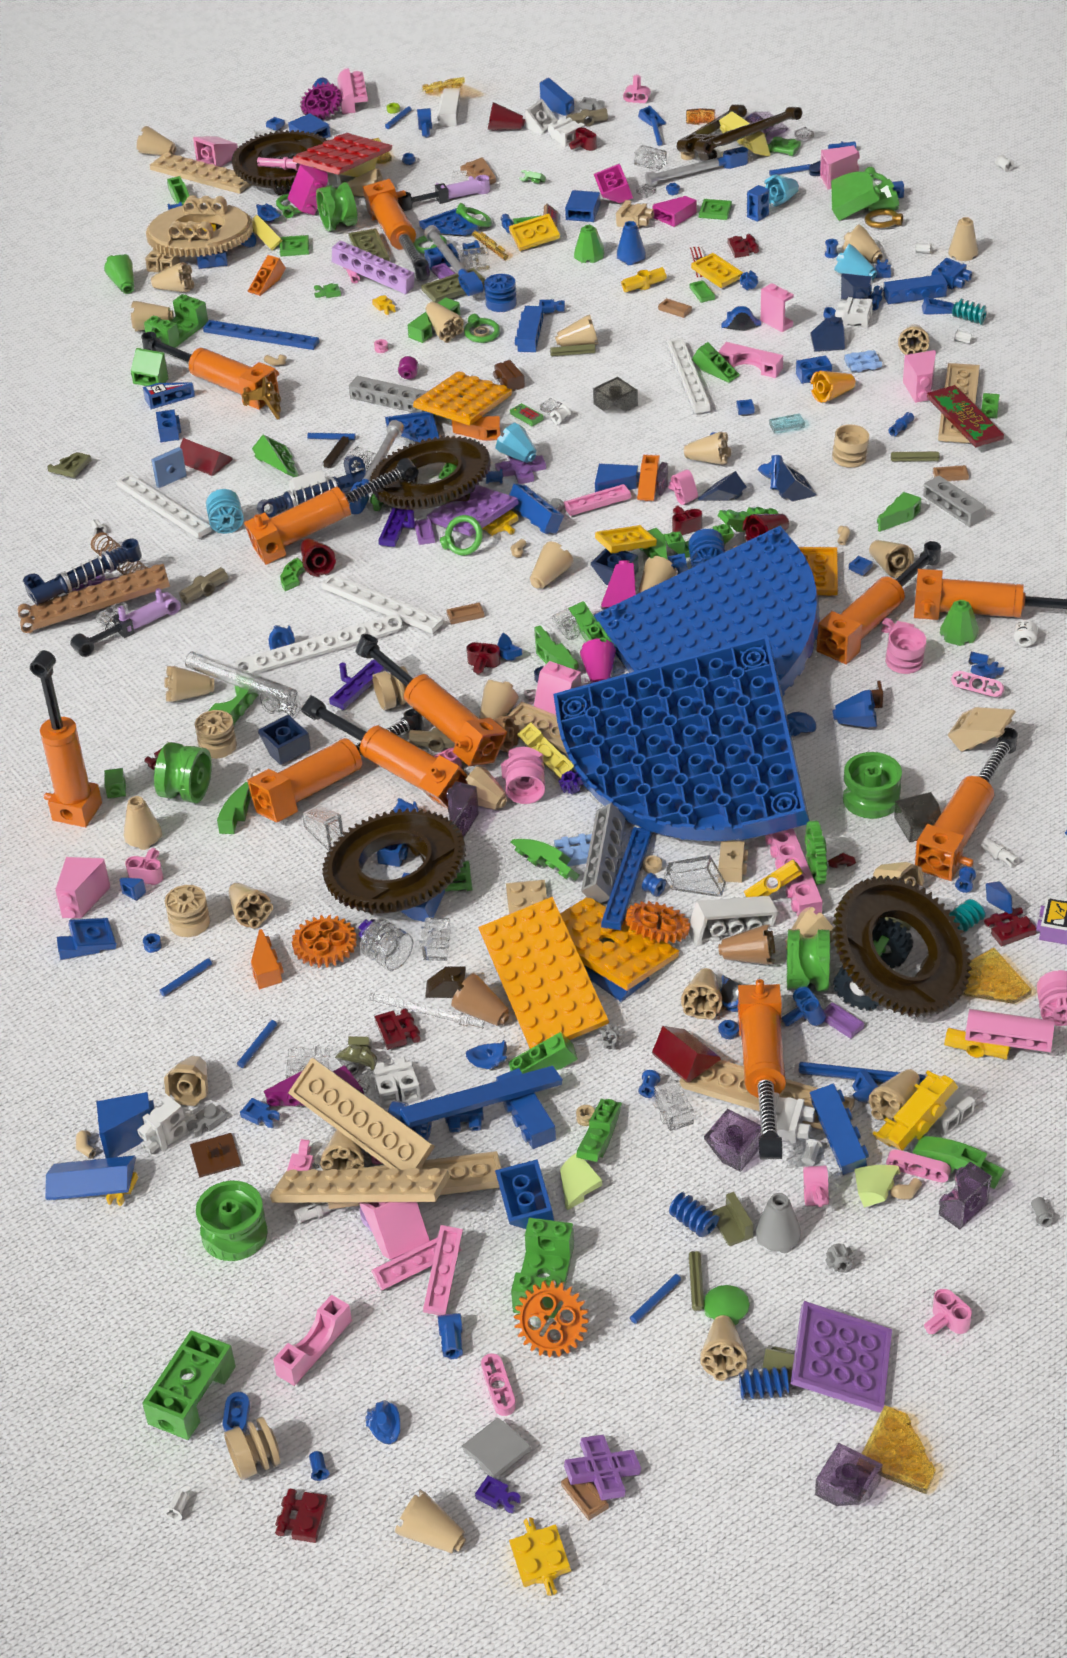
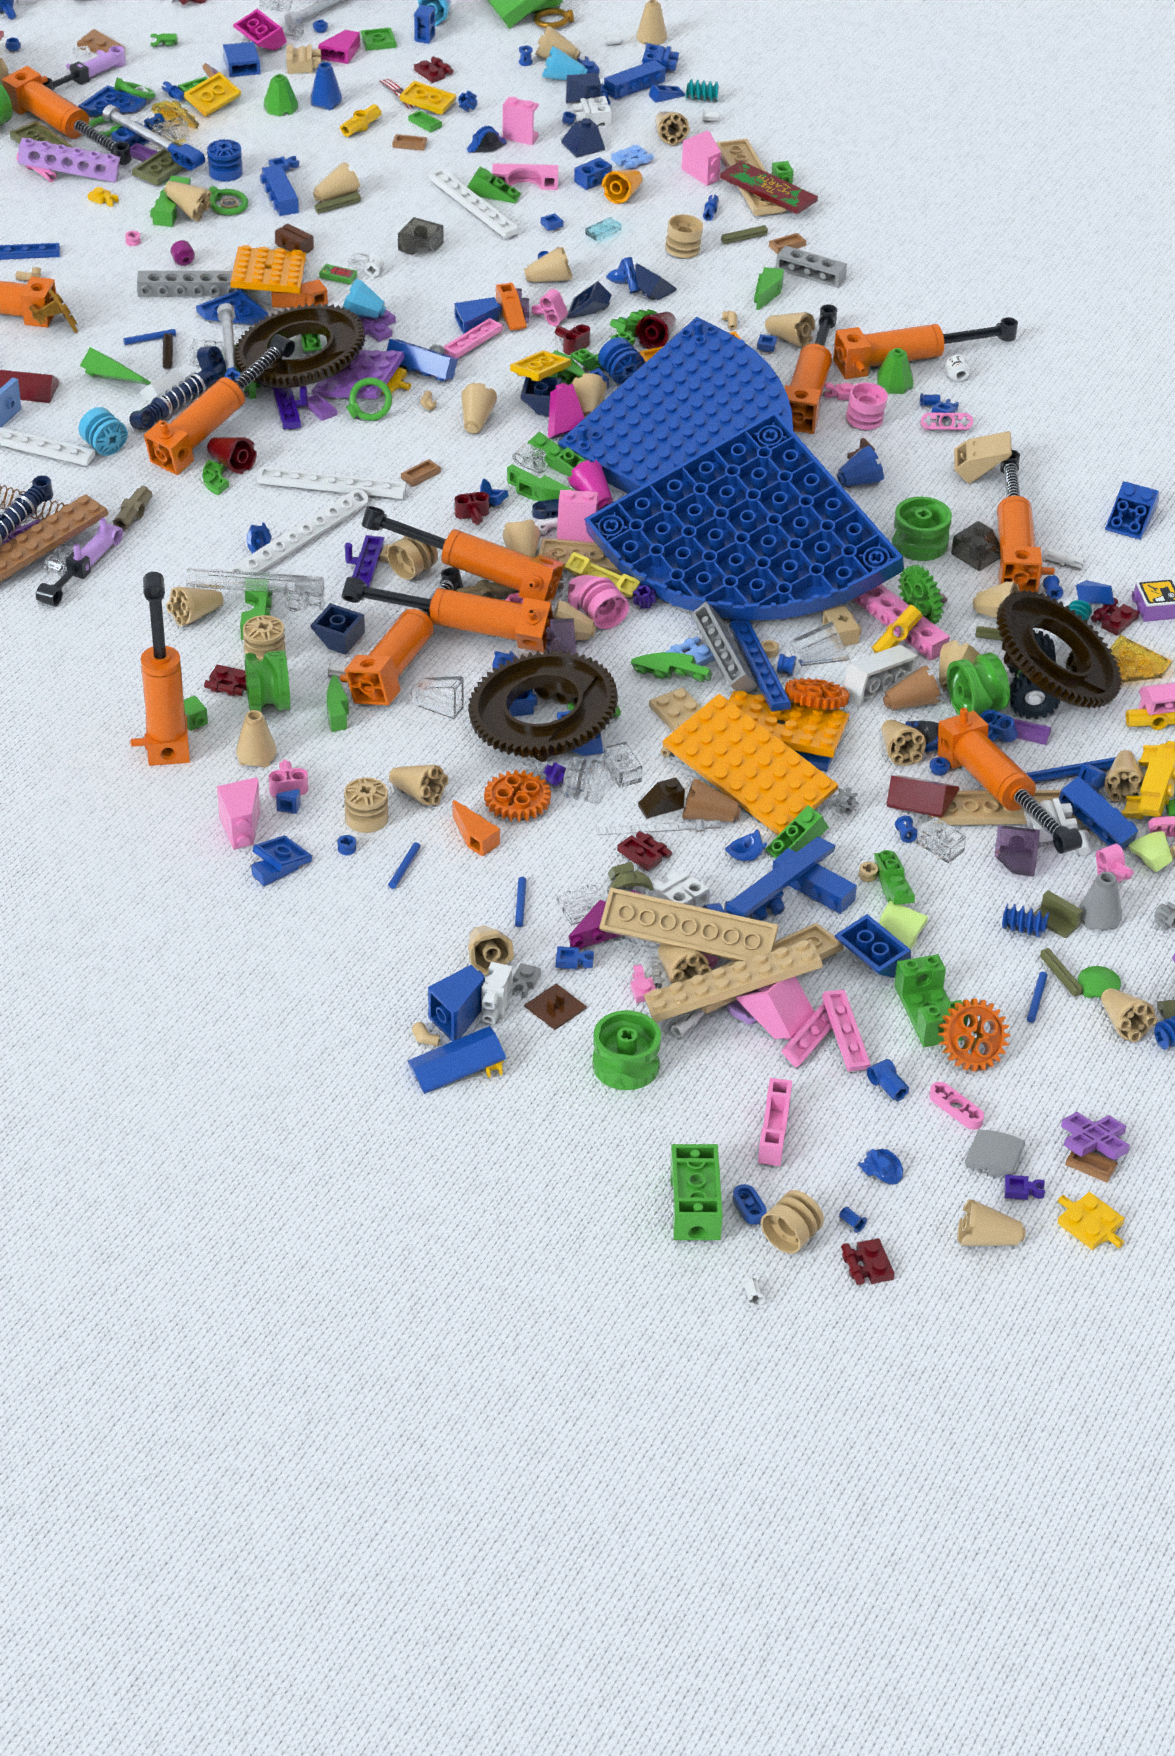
camera: 30 degrees left, 0 degrees up
(330, 290) = (33, 194): bright green plate -> none

